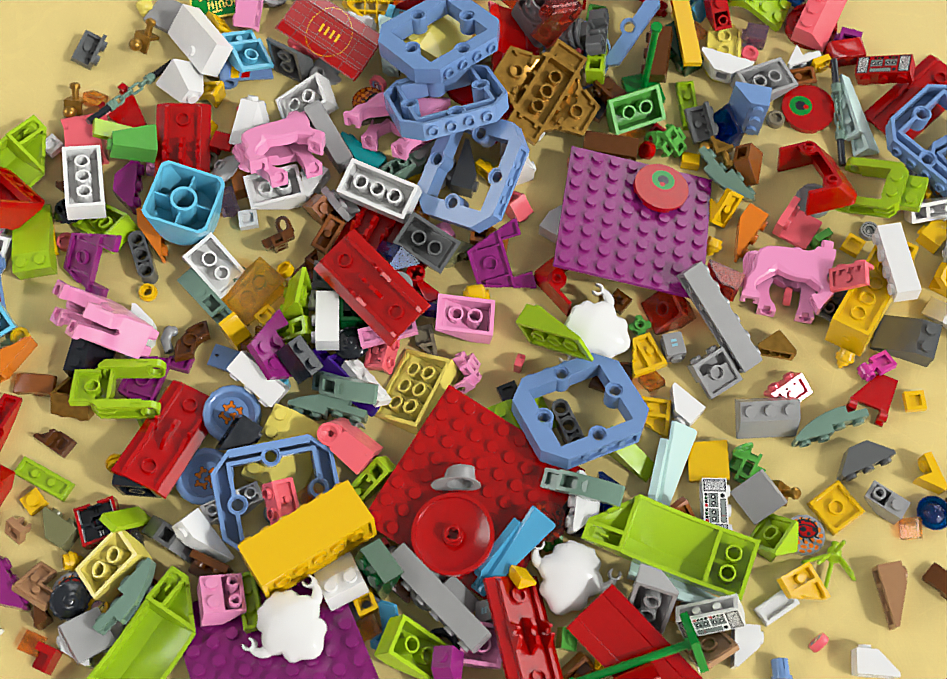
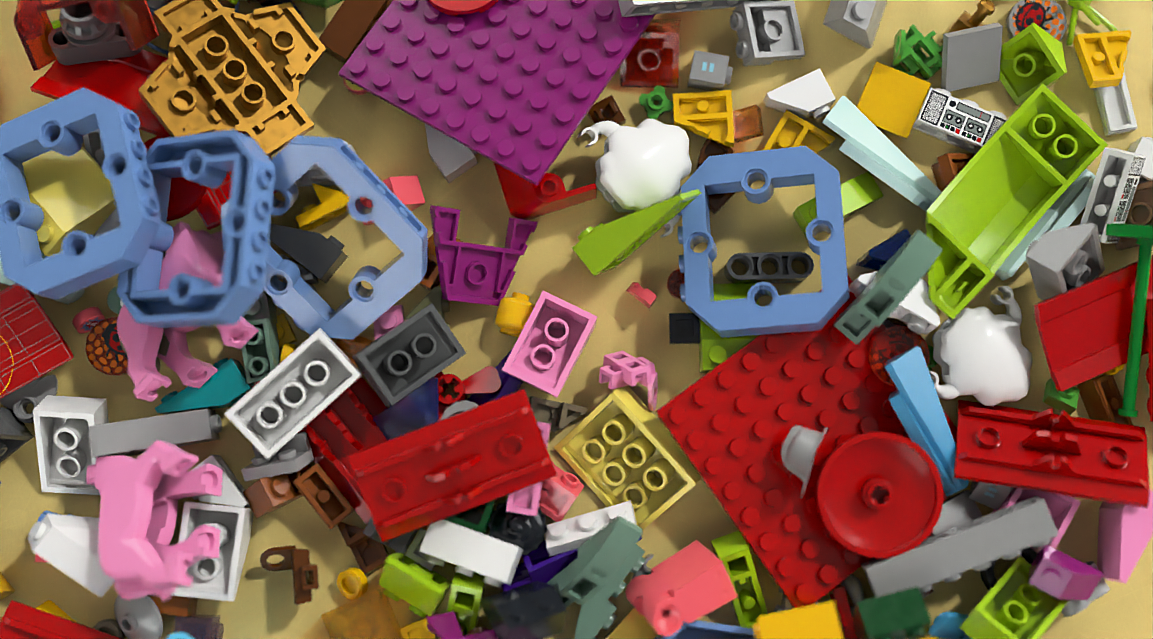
camera: 65 degrees left, 15 degrees up
(220, 142) = (87, 607): red panel -> none
(248, 219) = (242, 610): white plate -> none
(521, 577) = (966, 422): yellow slope -> none

